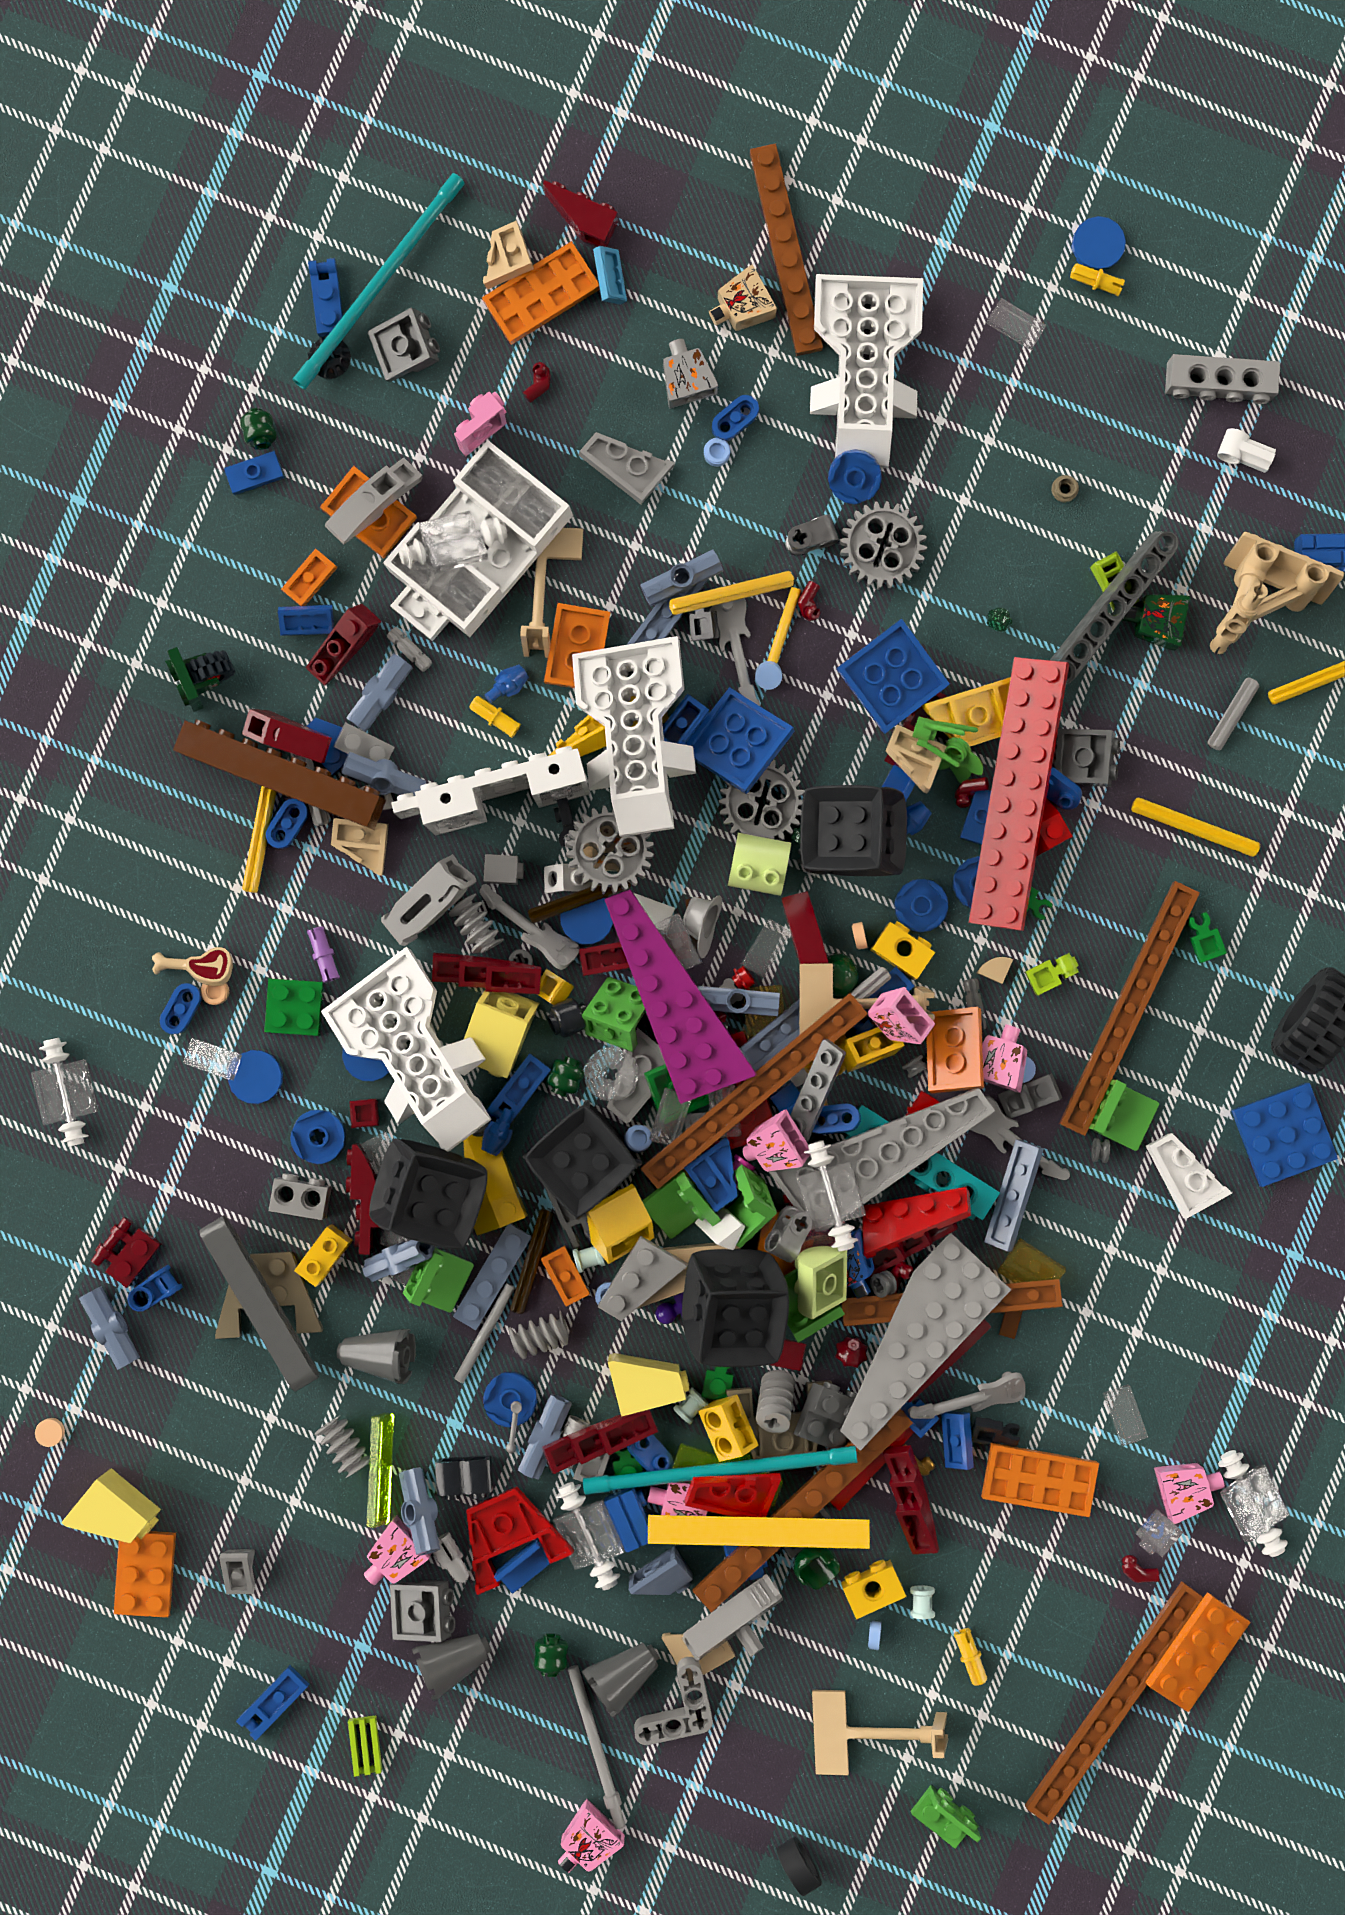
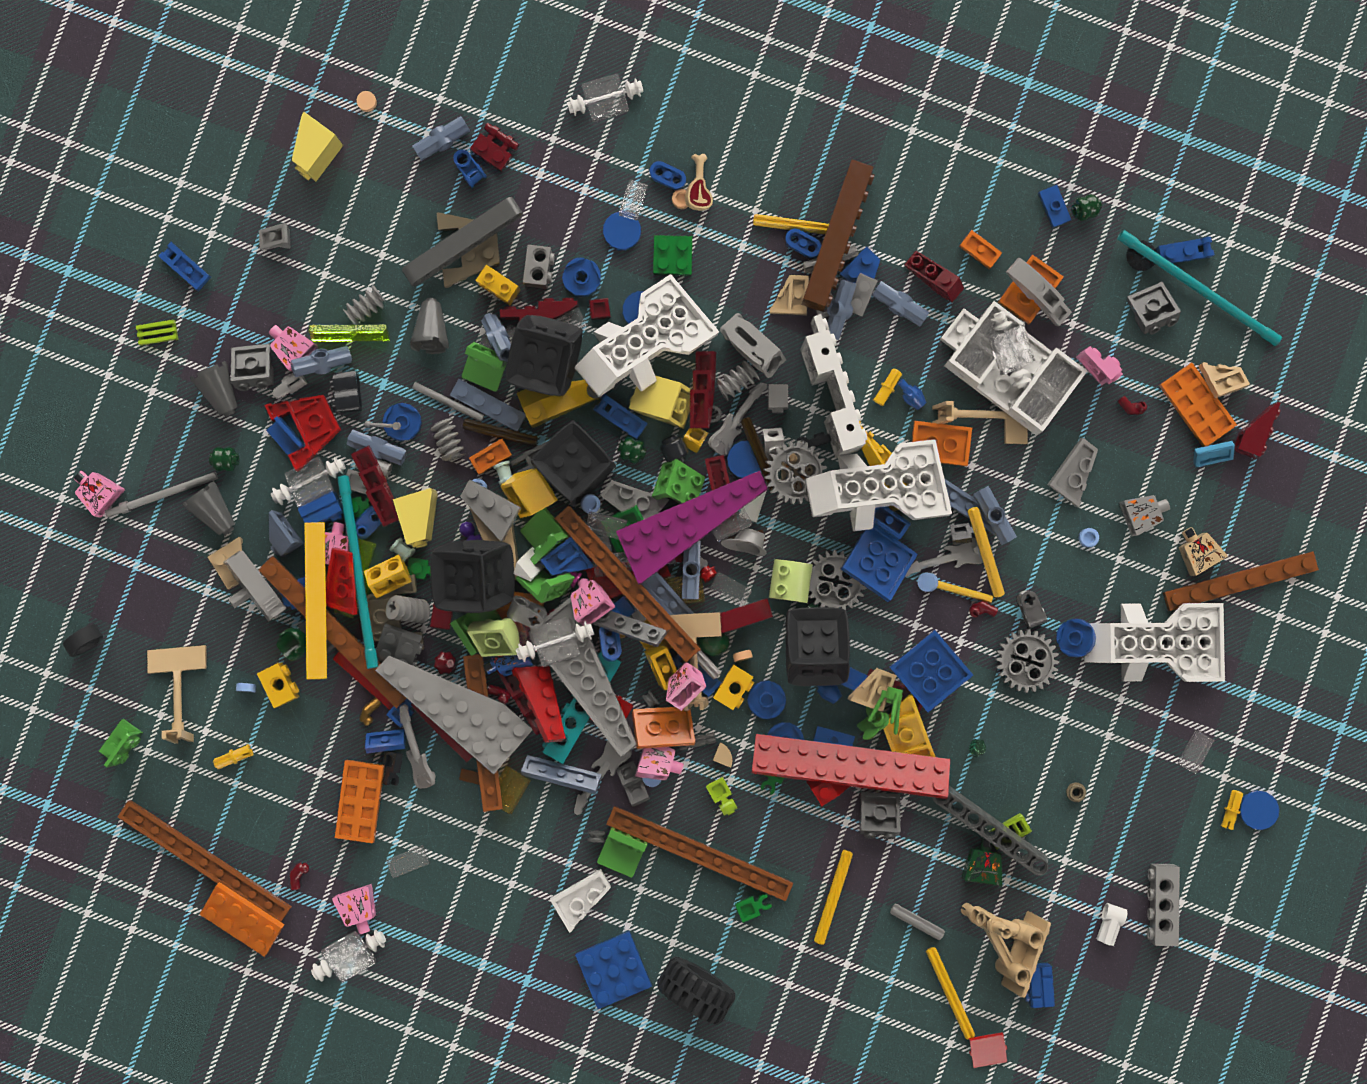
camera: 90 degrees right, 0 degrees up
(145, 1575) = (269, 173): orange plate -> none
(198, 674) = (906, 174): plate -> none
(286, 735) = (866, 238): dark red slope -> none
(306, 620) = (950, 248): blue plate -> none
(323, 954) = (711, 274): medium lavender pin -> none
(409, 649) = (933, 323): light grey axle -> none
(497, 1133) = (589, 403): blue piece -> none
(626, 1077) = (633, 492): clear plate -> none
(685, 1715) = (185, 555): light grey beam -> none
(734, 418) = (1114, 548): blue plate -> none
(883, 1284) = (494, 683): dark grey bush -> none
(912, 1500) = (341, 710): dark red slope -> none
(922, 1602) = (270, 720): light aqua bush -> none
(968, 788) = (852, 729): dark red arm -> none
(1063, 791) = (854, 798): blue plate -> none
(1158, 1534) = (324, 888): clear brick -> none

